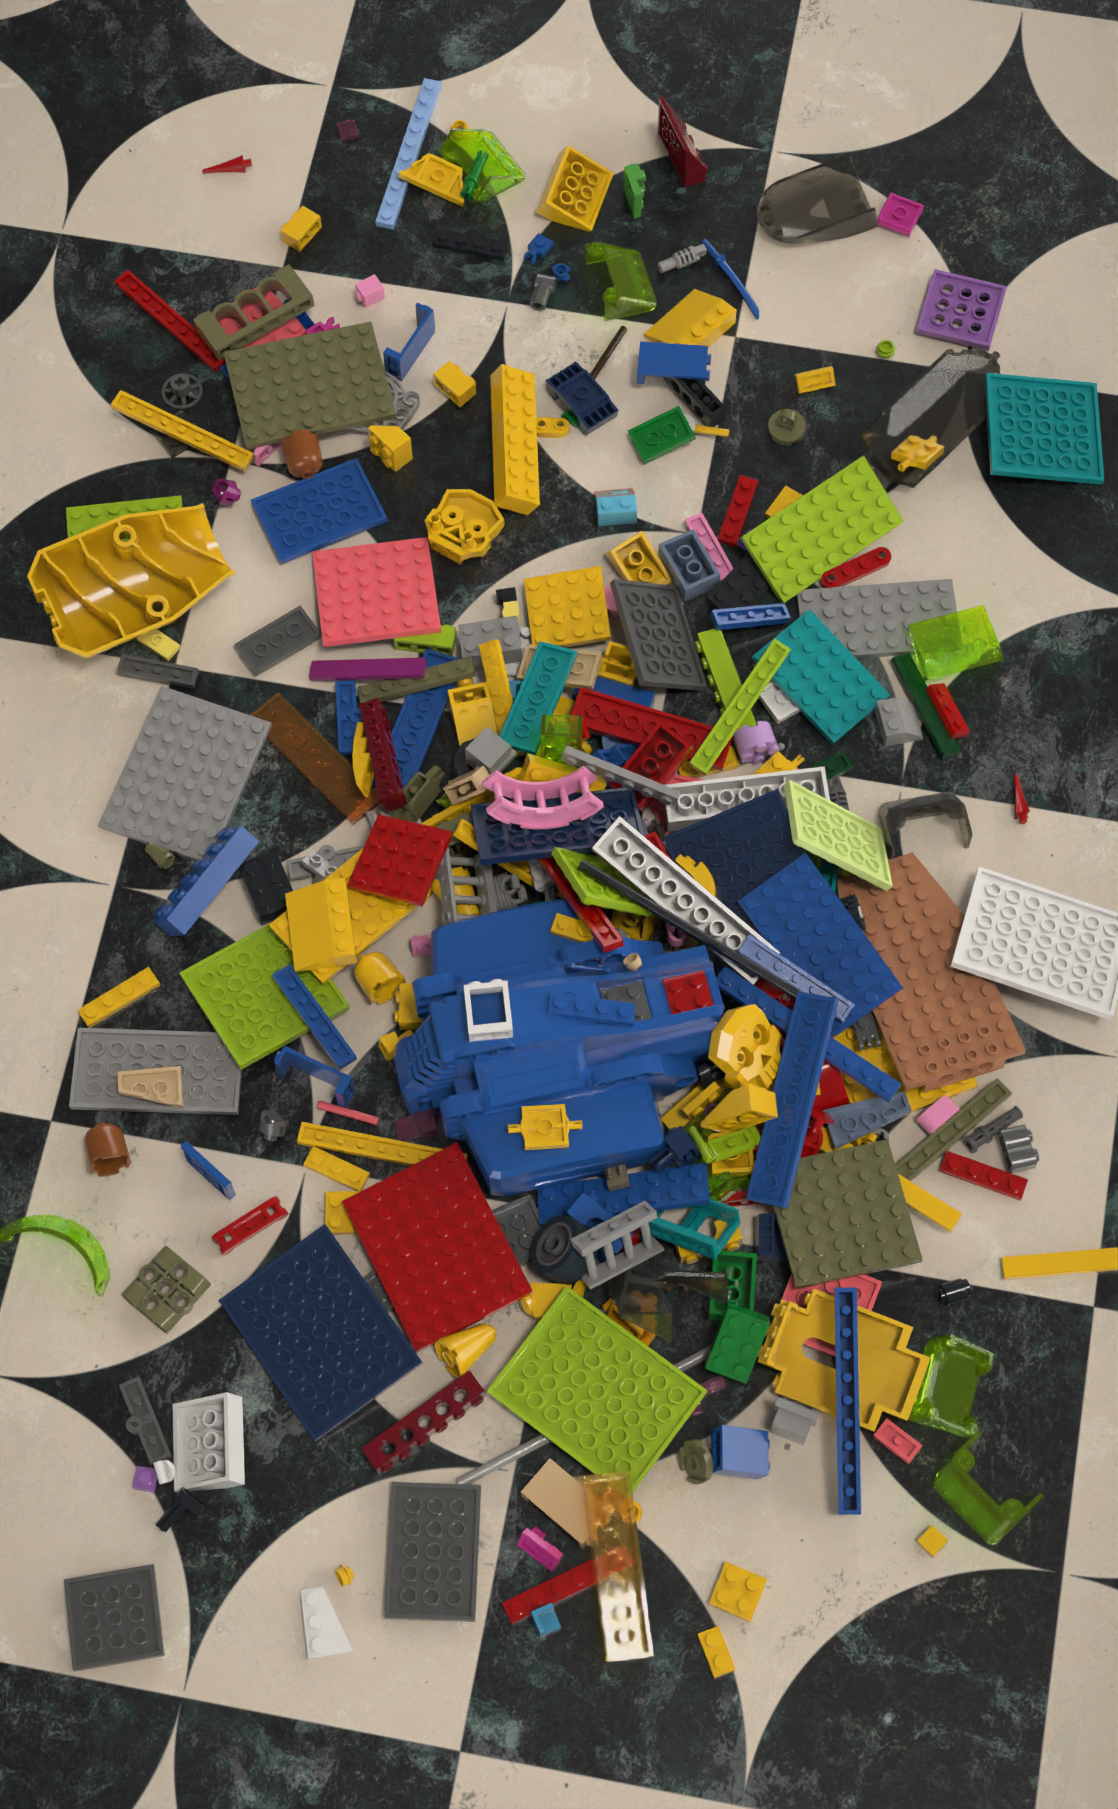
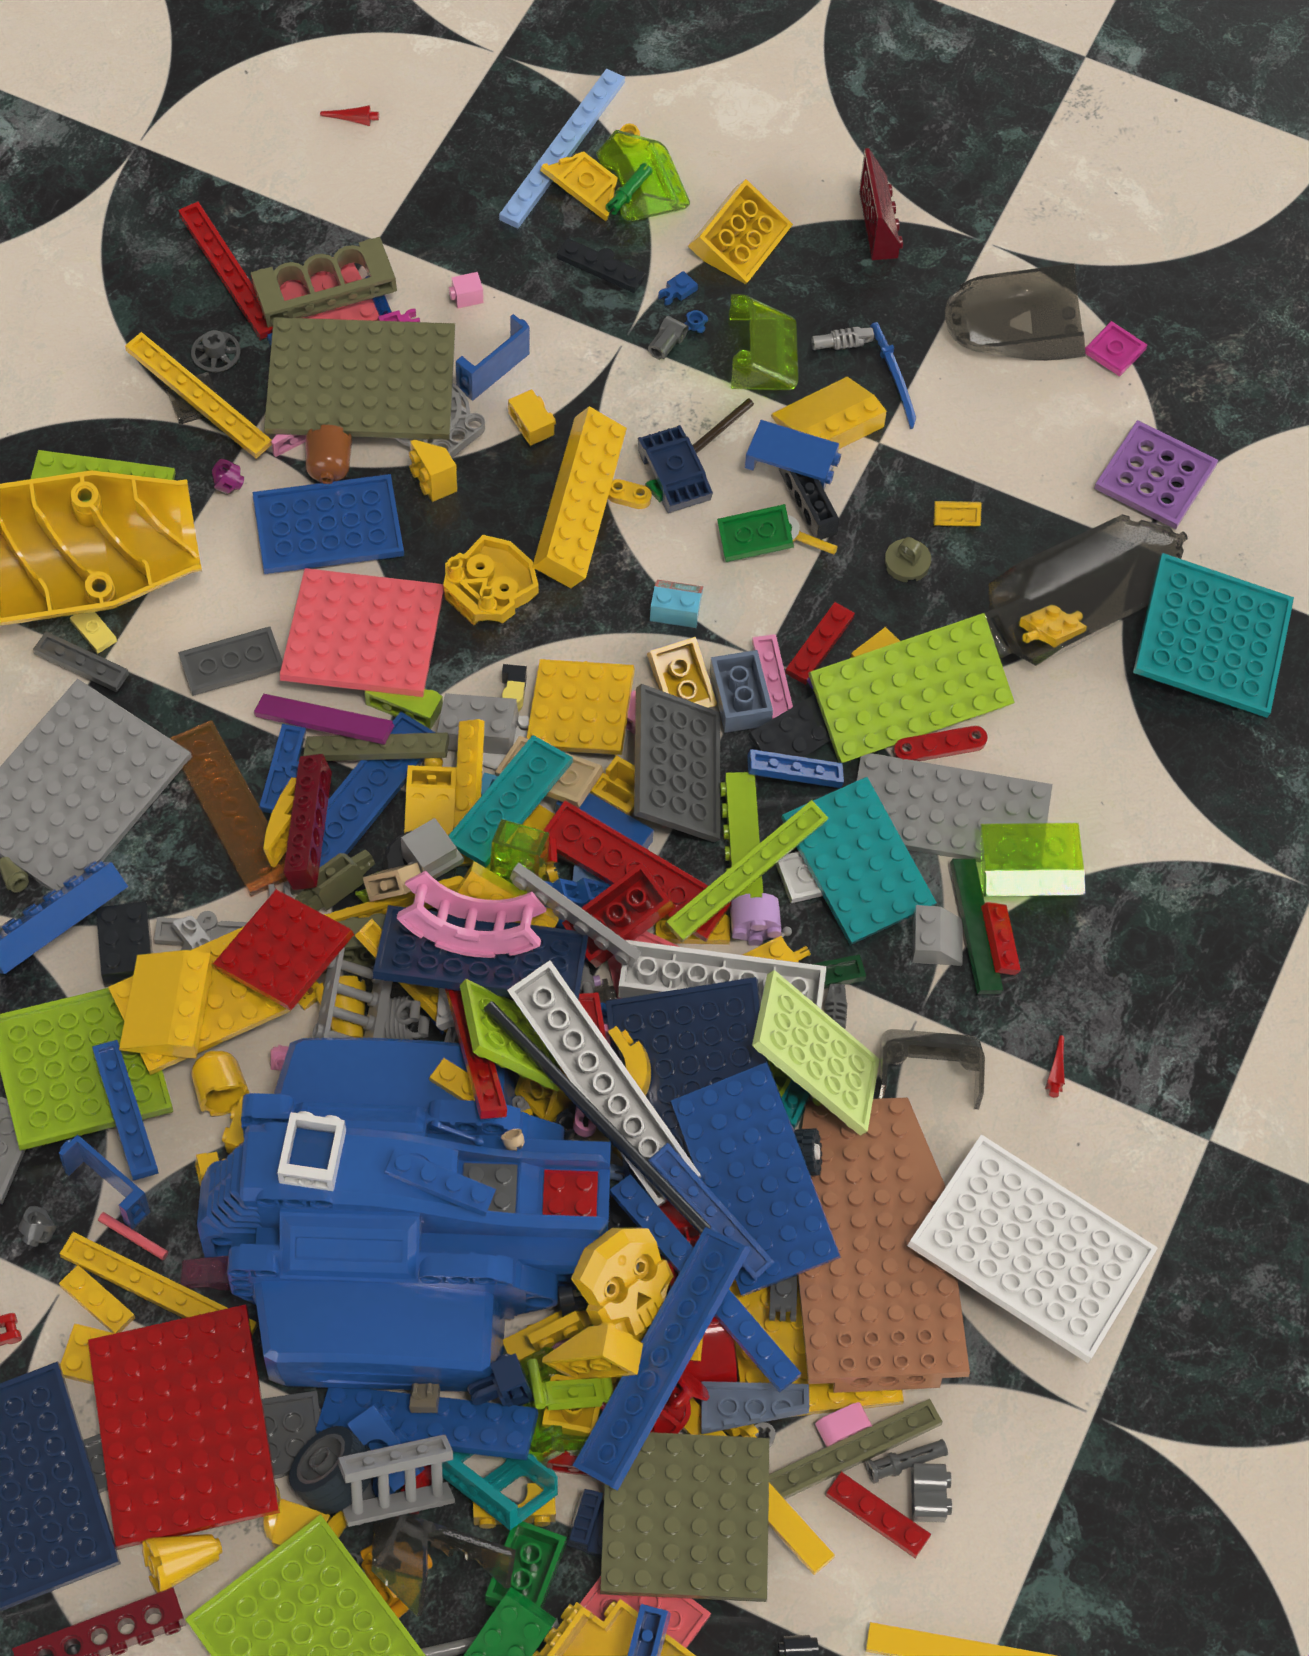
camera: 10 degrees right, 5 degrees down
(300, 228) = (410, 202): yellow brick -> none
(347, 130) = (500, 106): clear pink tile -> none
(544, 1127) = (346, 1311): yellow plate -> none
(634, 188) = (810, 245): bright green plate -> none
(885, 349) = (1052, 498): lime plate -> none

